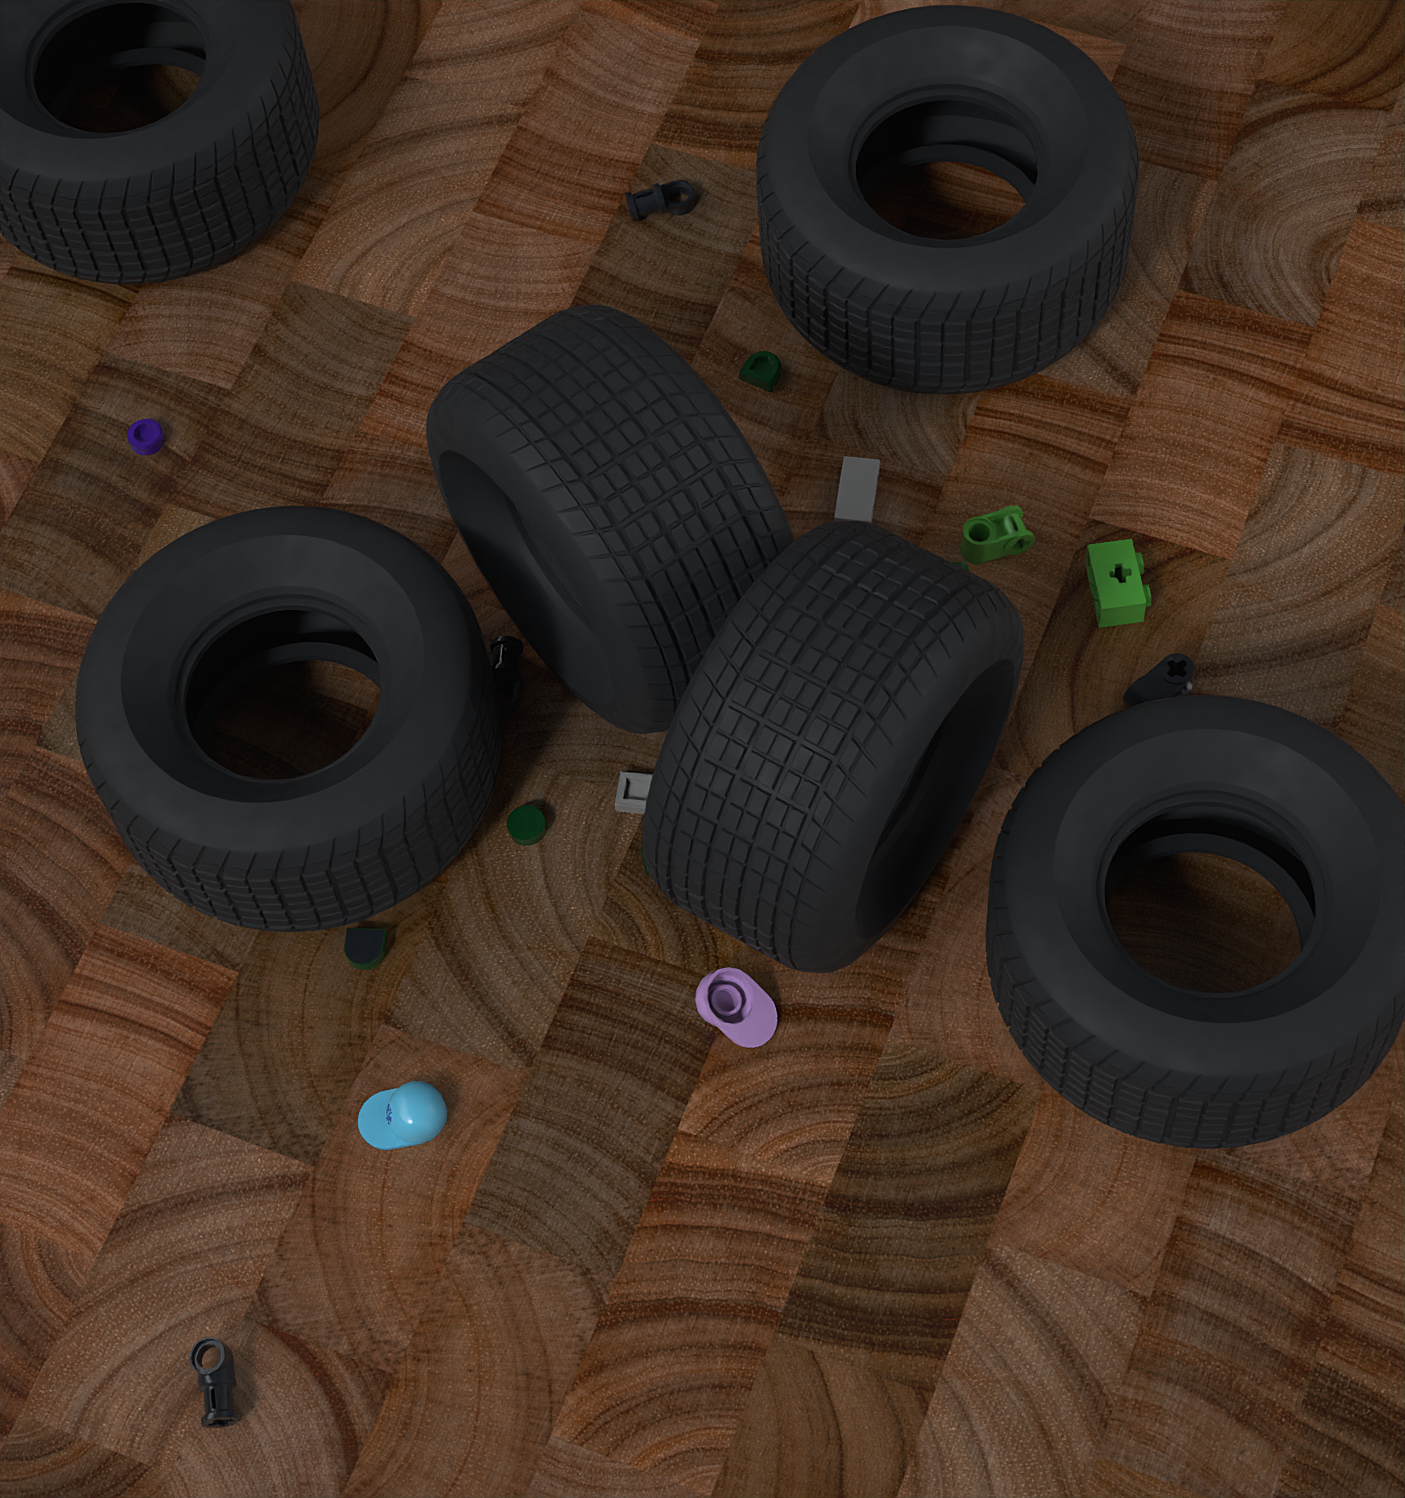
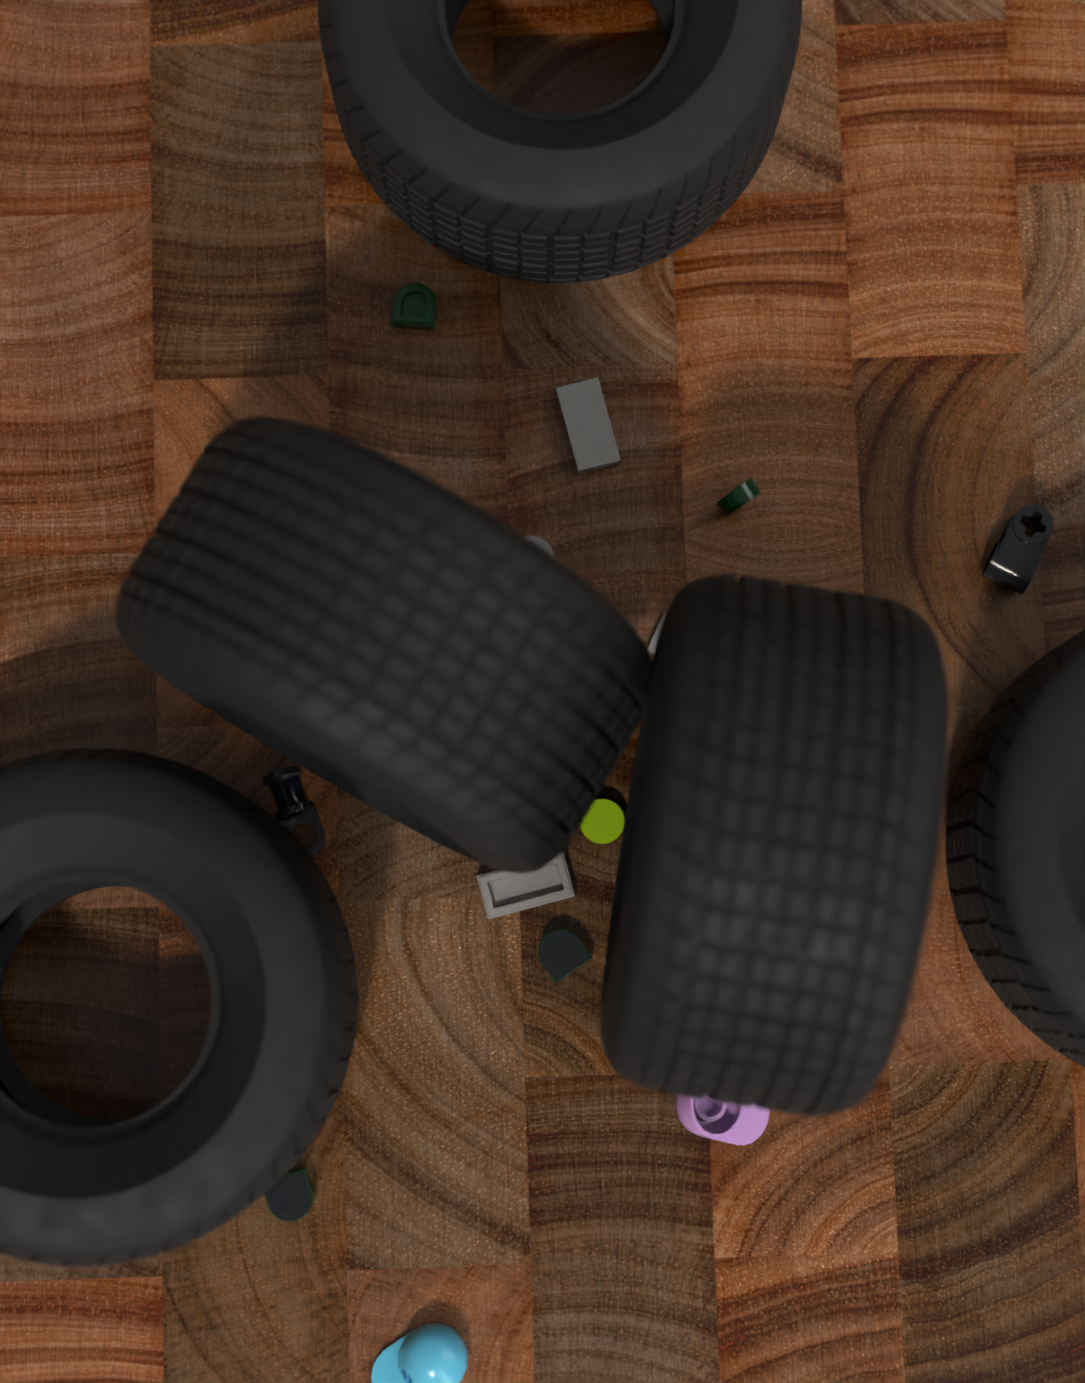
camera: 30 degrees left, 20 degrees up
(526, 825) = (400, 980): dark green tile -> none
(659, 199) = (196, 126): black connector -> none
(1001, 534) = (771, 420): bright green piece -> none
(1117, 583) = (923, 458): bright green brick -> none

